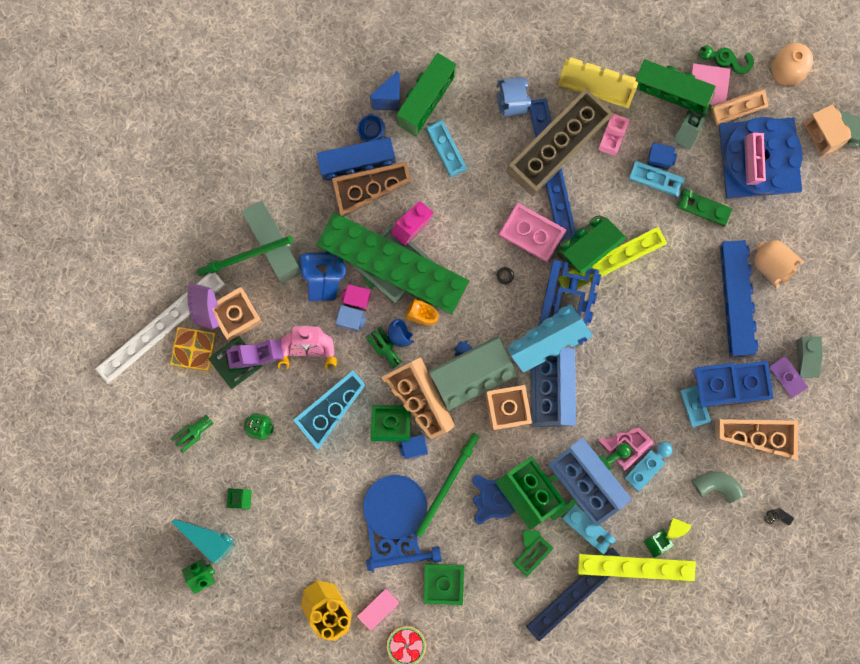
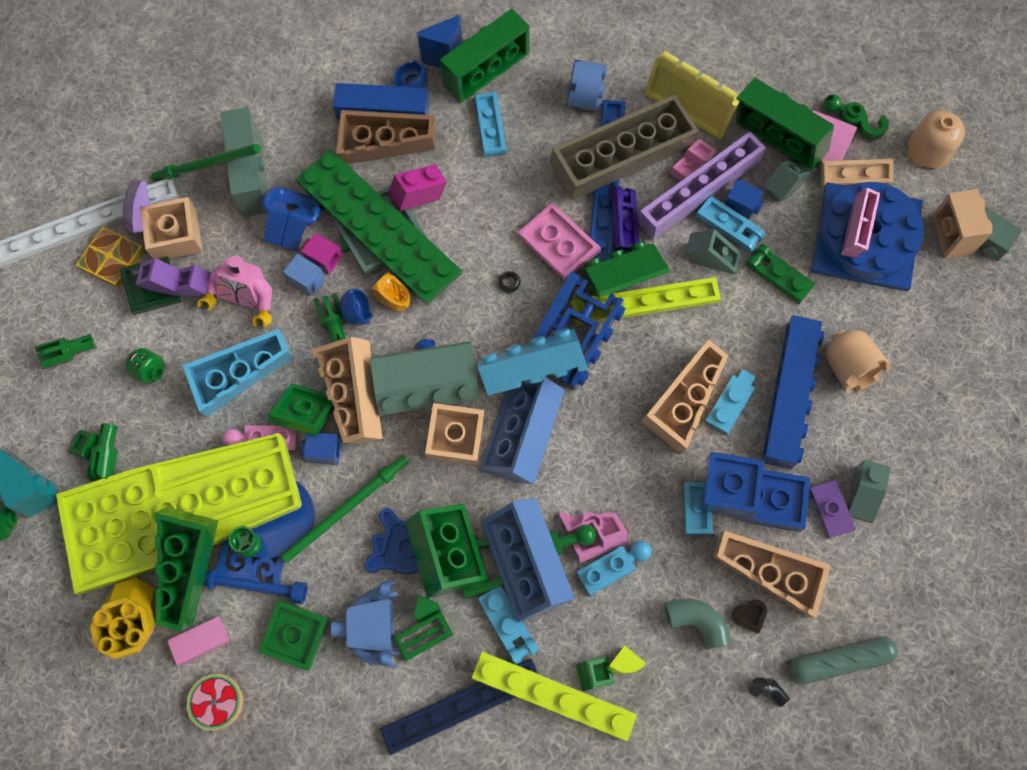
camera: 20 degrees right, 10 degrees down
(256, 502) = (103, 455): none -> green arm
(325, 525) = (112, 520): none -> neon yellow wing
(350, 554) = (181, 566): none -> green wedge
(366, 454) = (252, 432): none -> bright pink plate
(387, 532) = (241, 537): none -> green wheel
(496, 562) = (370, 626): none -> medium blue torso
(576, 198) = (624, 217): none -> dark purple plate
(627, 155) = (700, 185): none -> lavender brick
(650, 206) = (713, 251): none -> sand green slope
(663, 329) = (682, 403): none -> light nougat wedge
(696, 319) = (731, 402): none -> medium azure hinge
(752, 470) = (750, 615): none -> dark brown tile
(822, 480) = (843, 660): none -> sand green piece

